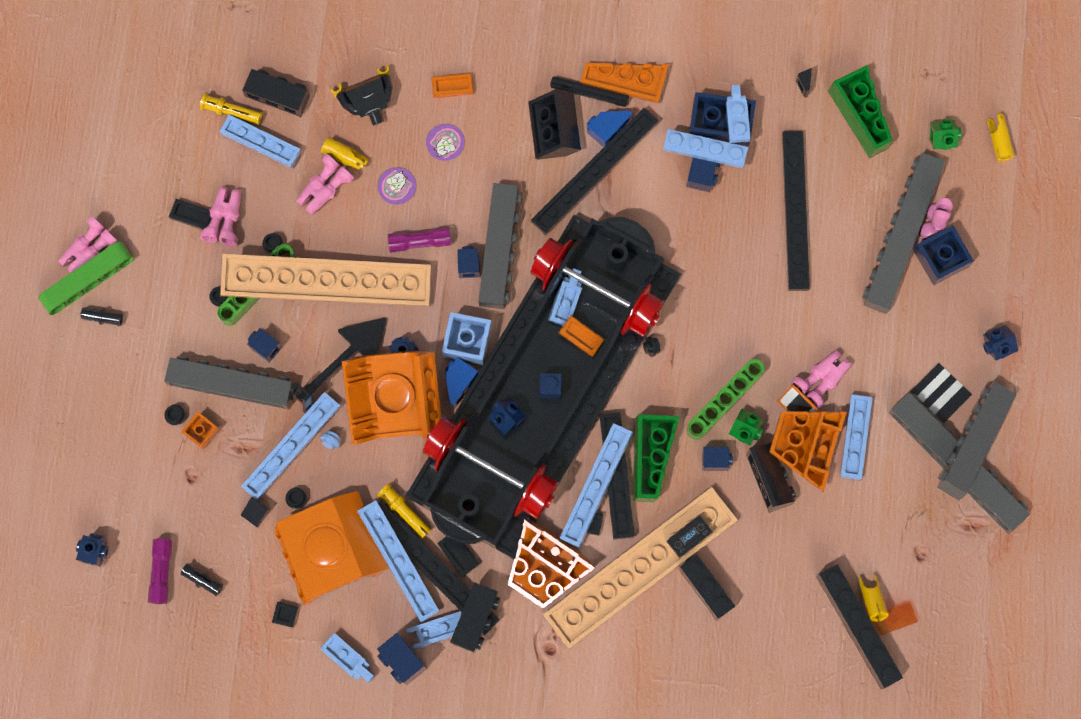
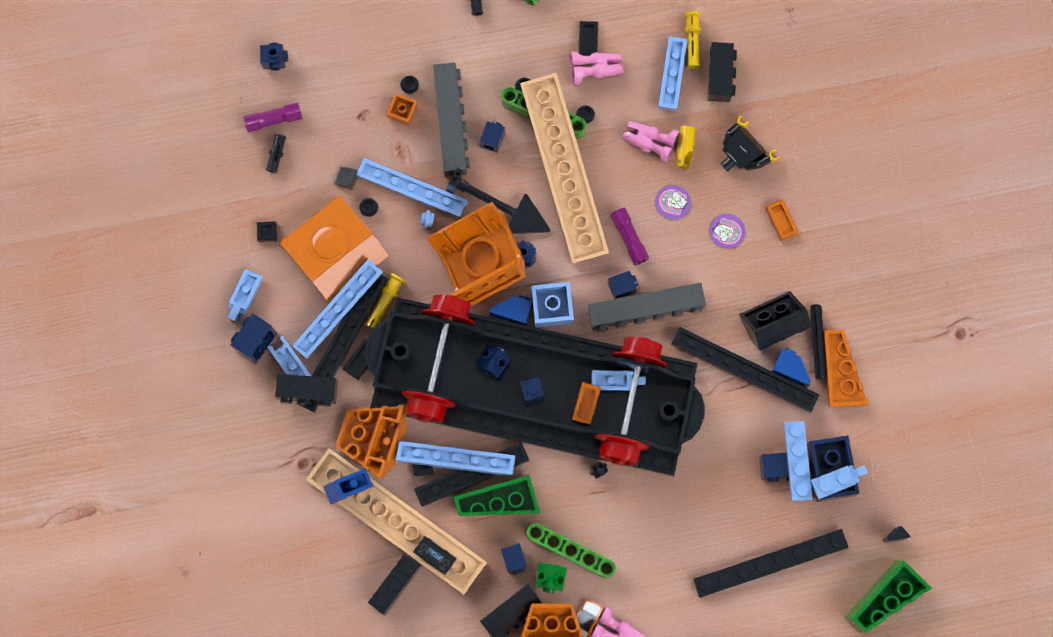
camera: 70 degrees right, 0 degrees up
(592, 604) = (348, 486): none -> blue slope

